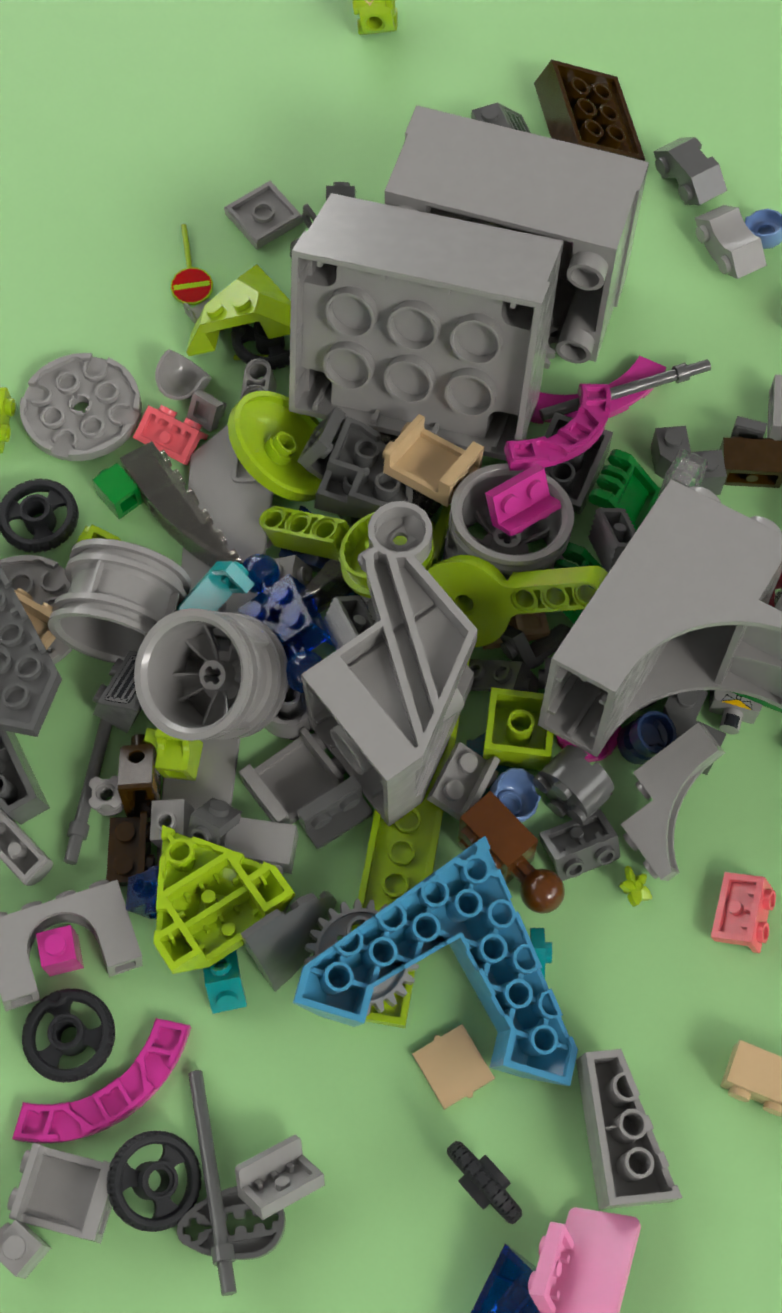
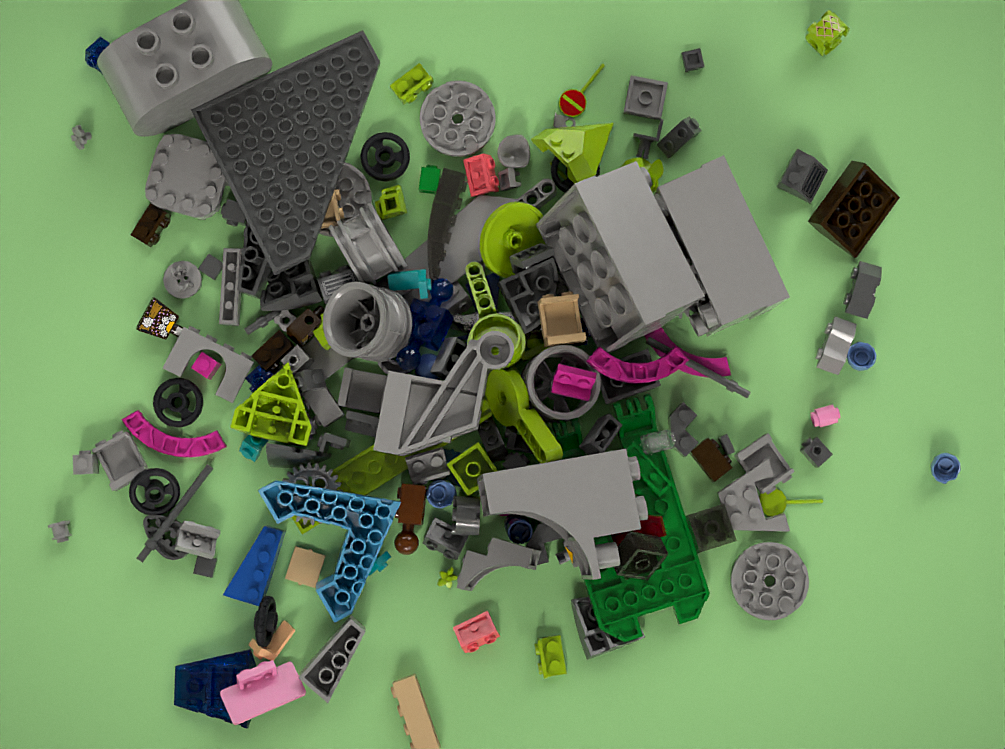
camera: 50 degrees right, 20 degrees up
(73, 749) = (291, 289): none -> dark grey brick
(271, 143) = (692, 60): none -> dark grey tile
(320, 865) = (336, 442): none -> dark grey bracket
(325, 1208) = (205, 566): none -> dark grey tile
(401, 1140) = (255, 572): none -> blue wedge
(528, 1194) = (277, 643): none -> light nougat bracket

